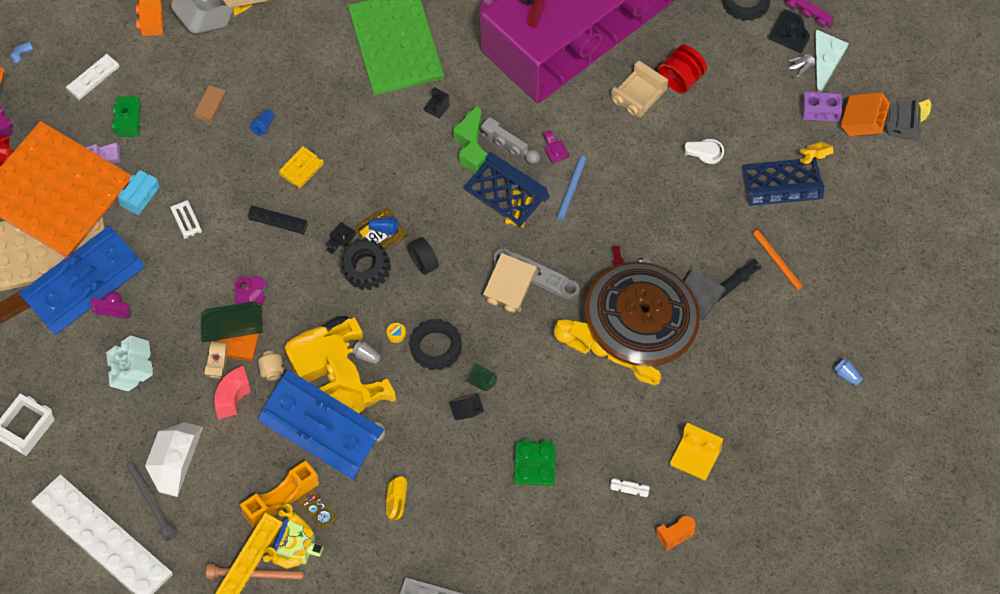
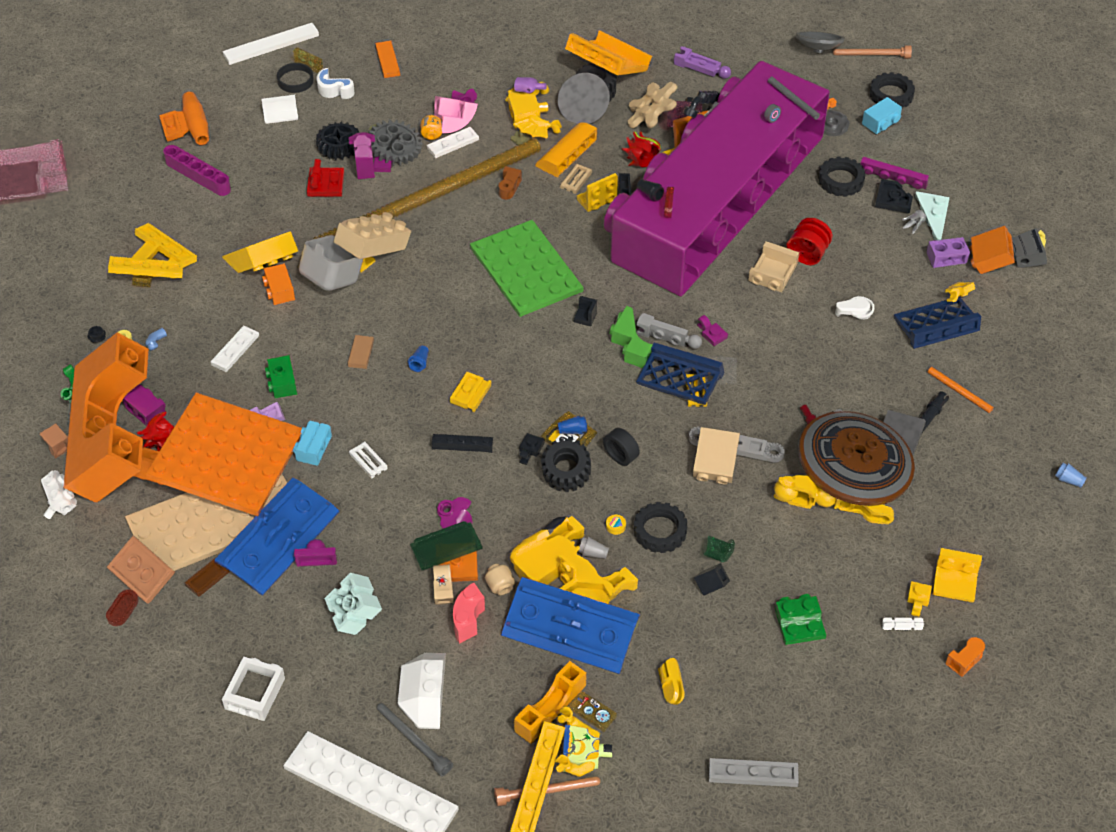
camera: 15 degrees left, 10 degrees down
(571, 188) = (740, 363): medium blue bar -> none
(655, 463) = (919, 595): none -> yellow plate

